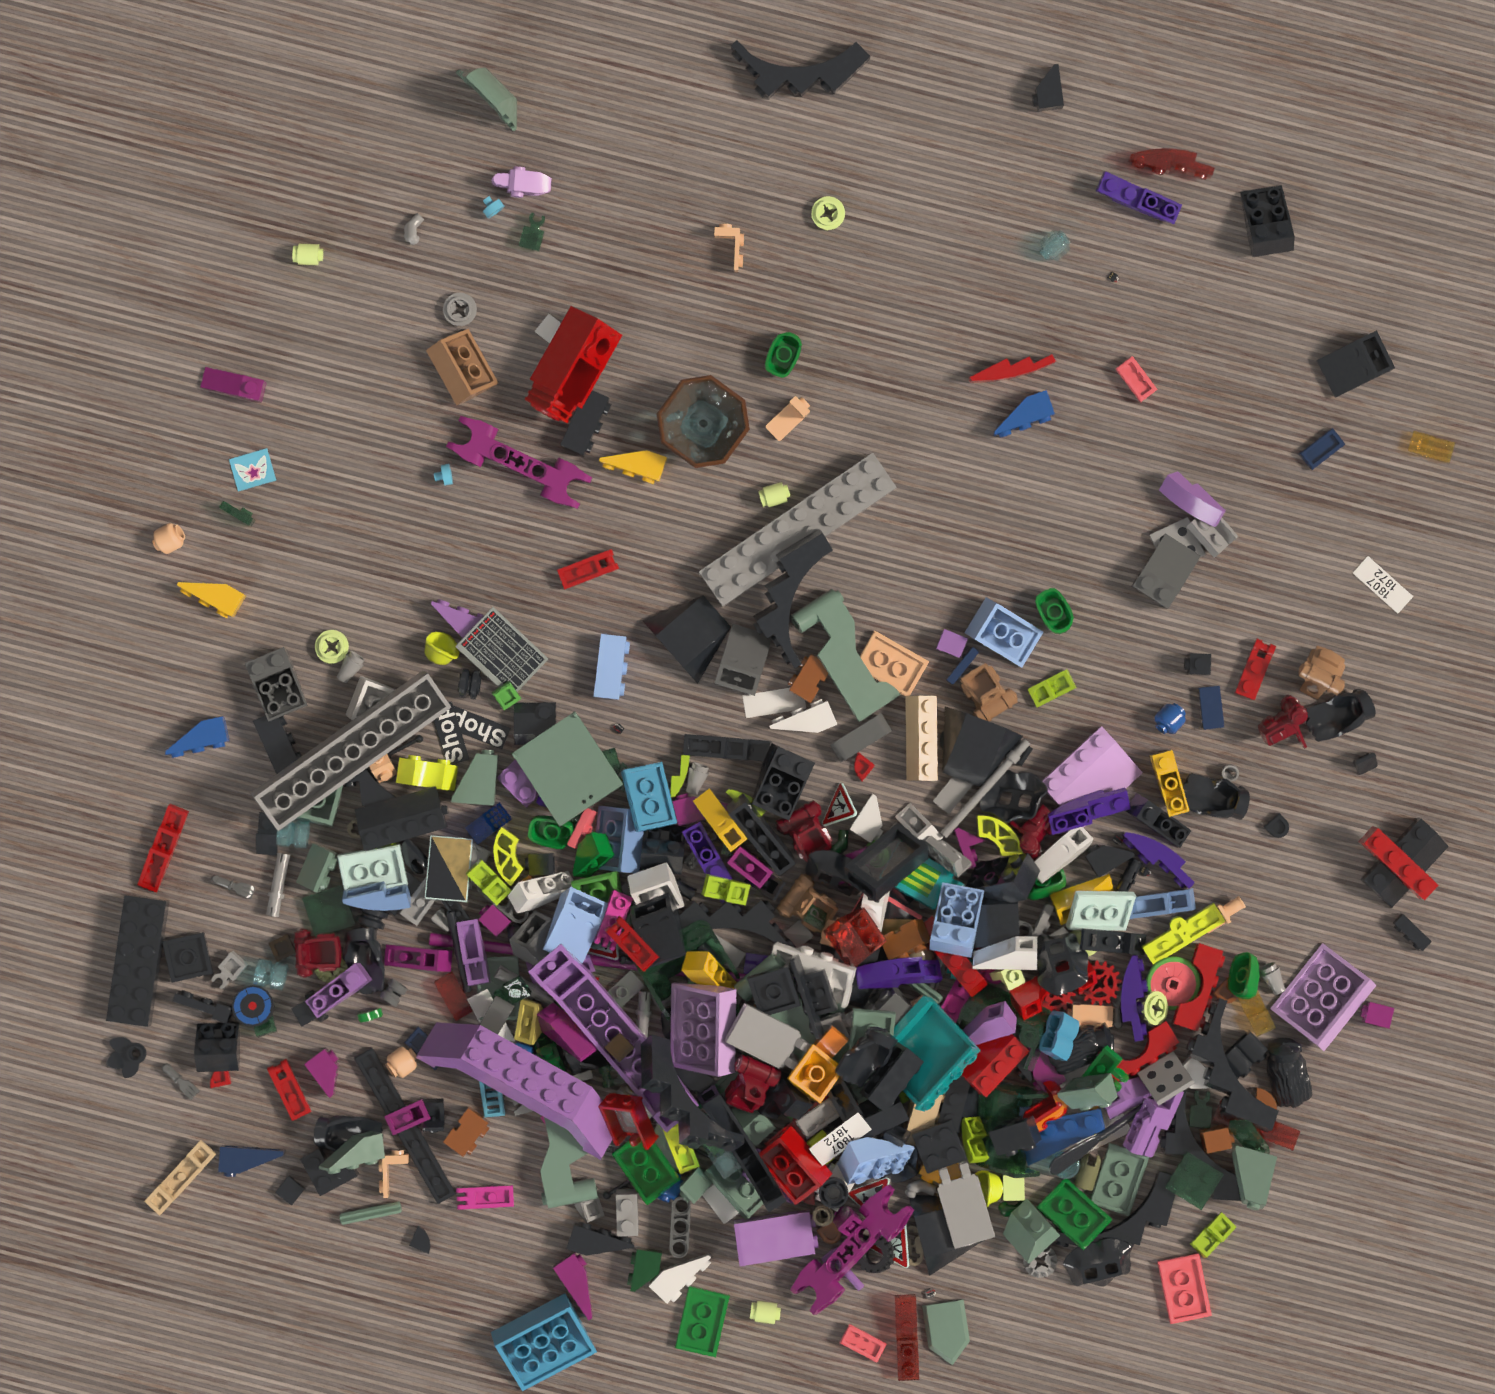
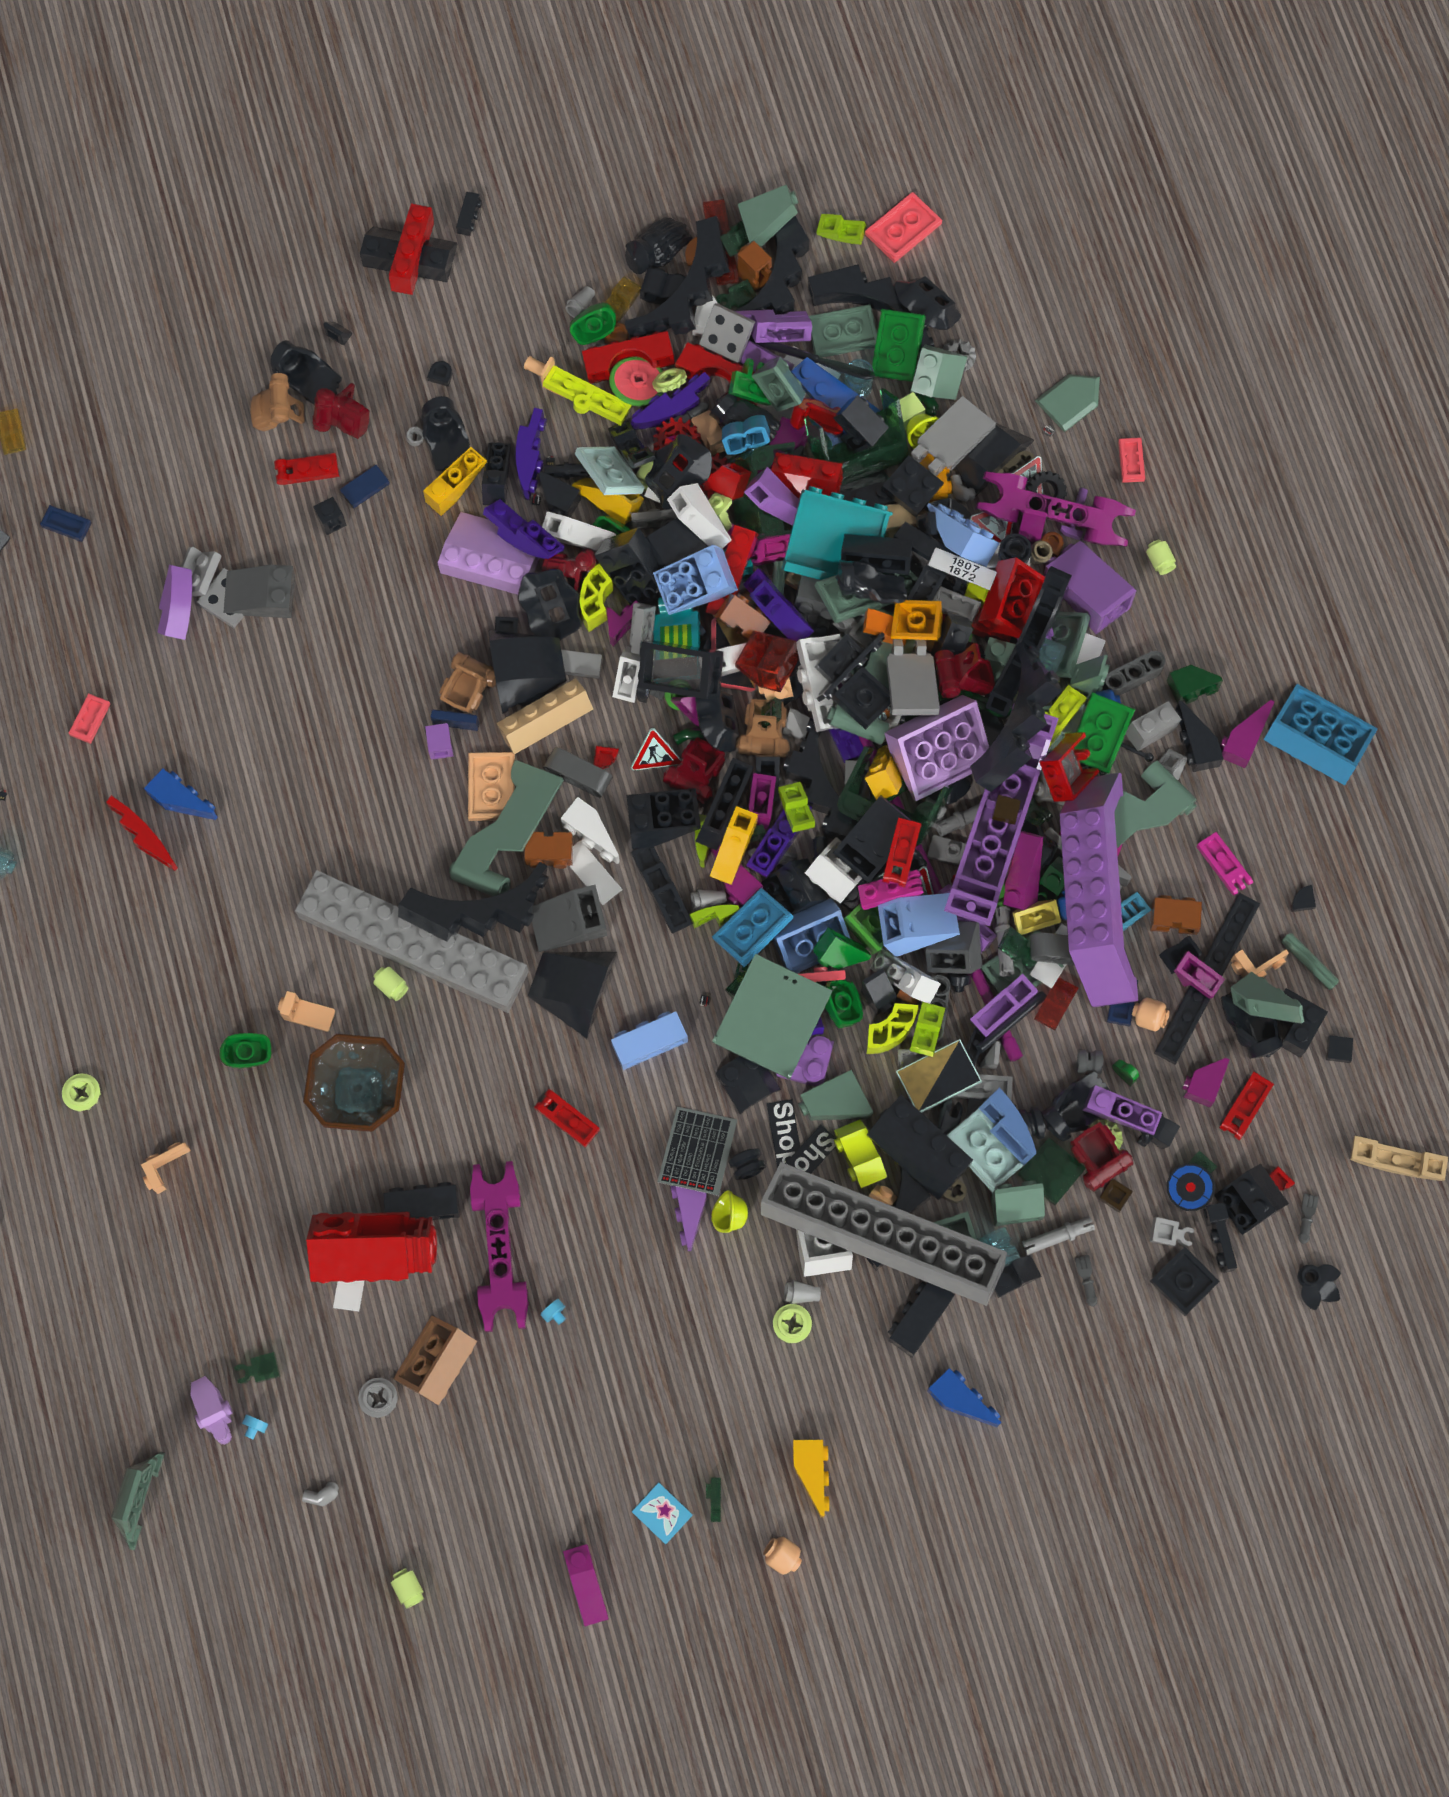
camera: 115 degrees left, 15 degrees down
(137, 960) = (1219, 1328): black brick -> none
(163, 848) = (1094, 1371): red slope -> none
(240, 1158) = (1340, 1109): dark blue slope -> none
(276, 683) = (863, 1352): dark grey slope -> none
(278, 974) = (1146, 1180): clear light blue wheel -> none
(418, 958) = (1042, 1057): magenta slope -> none
(488, 823) = (872, 1067): clear blue slope -> none
(494, 919) = (960, 1007): magenta brick -> none
(506, 695) = (737, 1123): bright green tile -> none
(641, 463) = (430, 1122): yellow slope -> none
(674, 1278) = (1179, 648): white slope -> none
(702, 1321) = (1206, 608): green tile -> none
(868, 821) = (653, 715): white slope -> none
(906, 1337) = (1102, 425): clear red slope -> none
(972, 1134) = (881, 468): lime slope -> none
(1004, 632) = (400, 702): light blue slope -> none
(1012, 758) = (515, 626): light grey bar -> none
(1052, 688) = (429, 632): lime slope -> none
(1054, 611) = (353, 665): green piece -> none
(1087, 1174) = (854, 353): olive piece -> none
(1163, 903) = (569, 425): medium blue slope -> none
(1170, 718) = (395, 513): blue head -> none
(1194, 1180) = (803, 262): clear green plate -> none
(1323, 997) = (571, 252): lavender slope -> none
(1377, 1014) = (559, 200): magenta brick -> none
(1382, 584) = (164, 406): white sticker -> none

